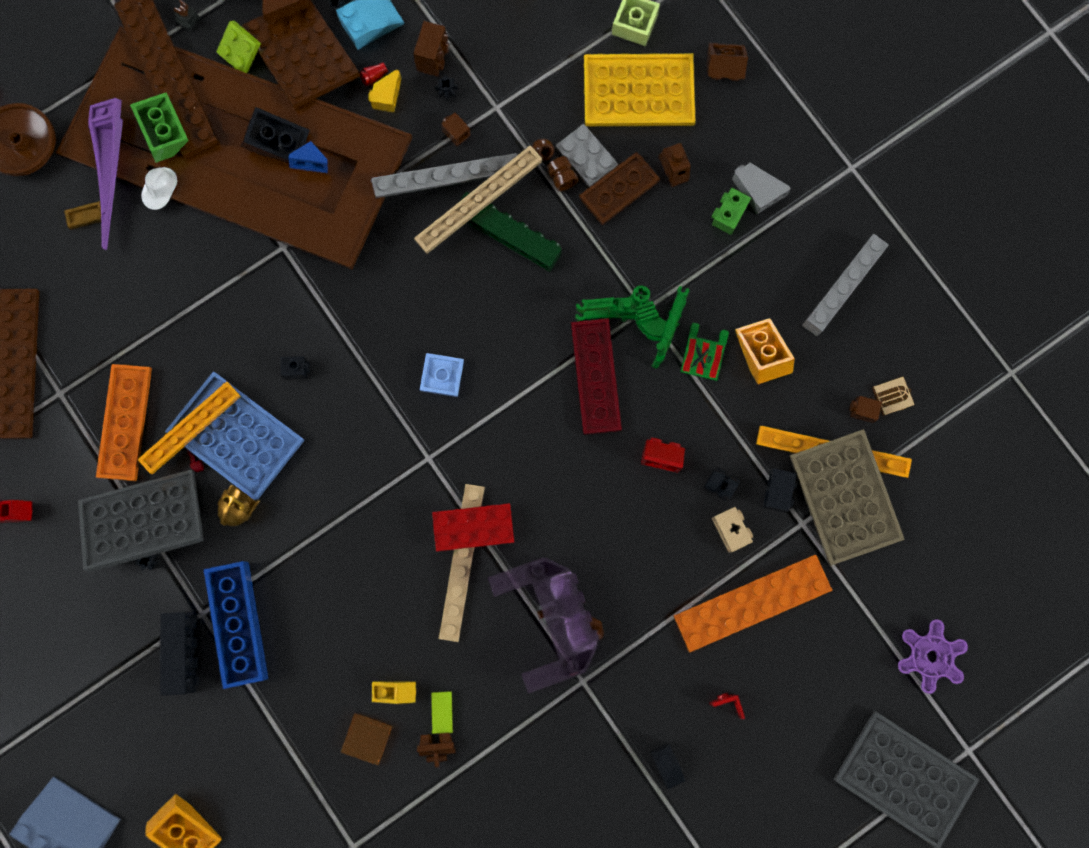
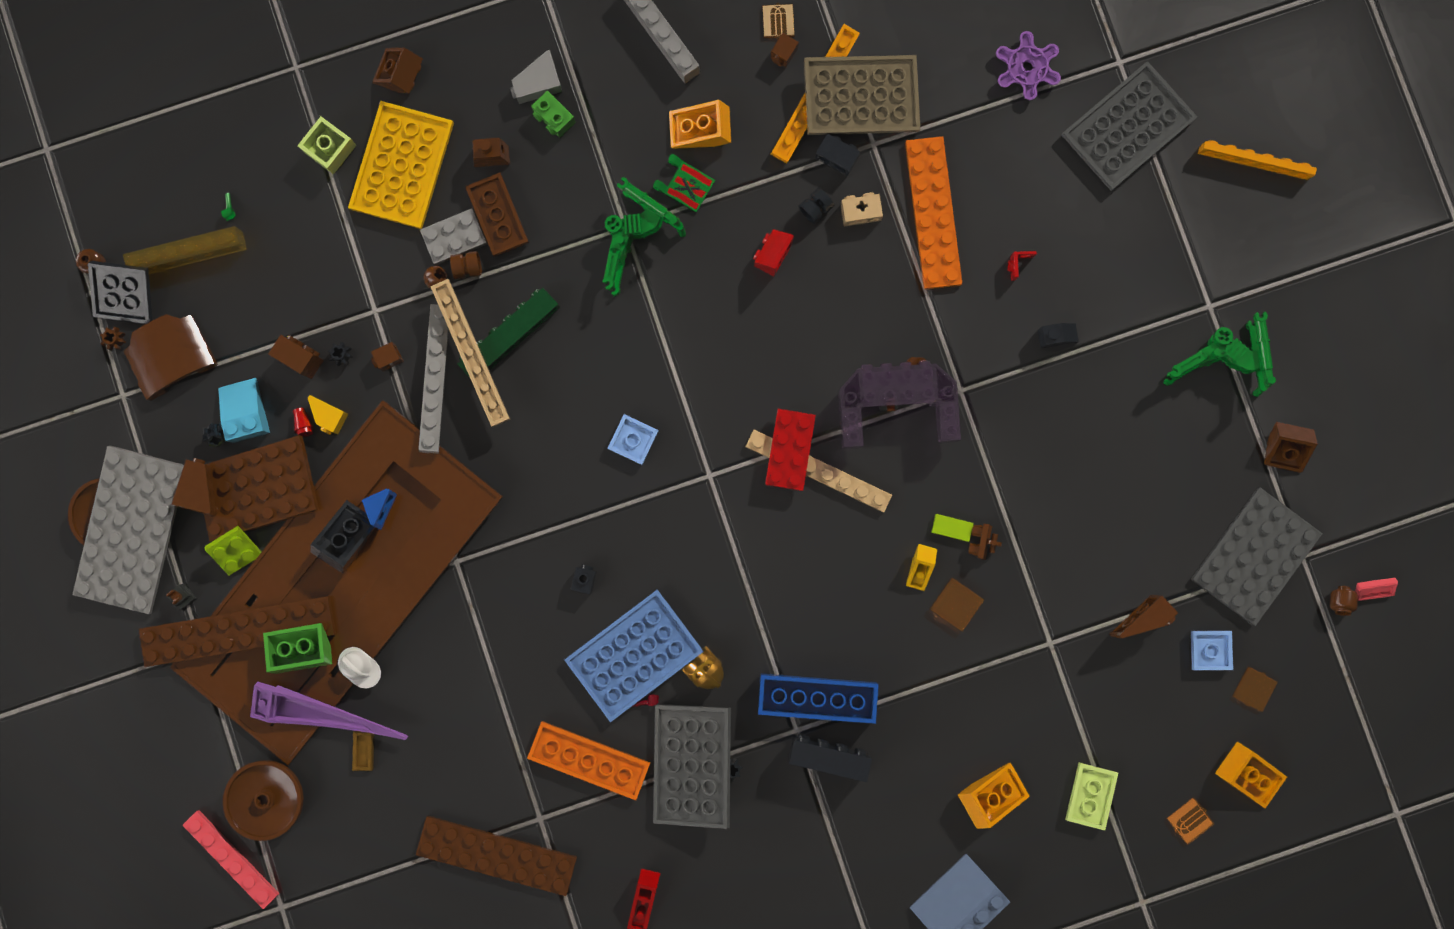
camera: 70 degrees left, 5 degrees up
(189, 428) = (615, 696): light orange plate -> none
(596, 376) = (677, 292): dark red plate -> none

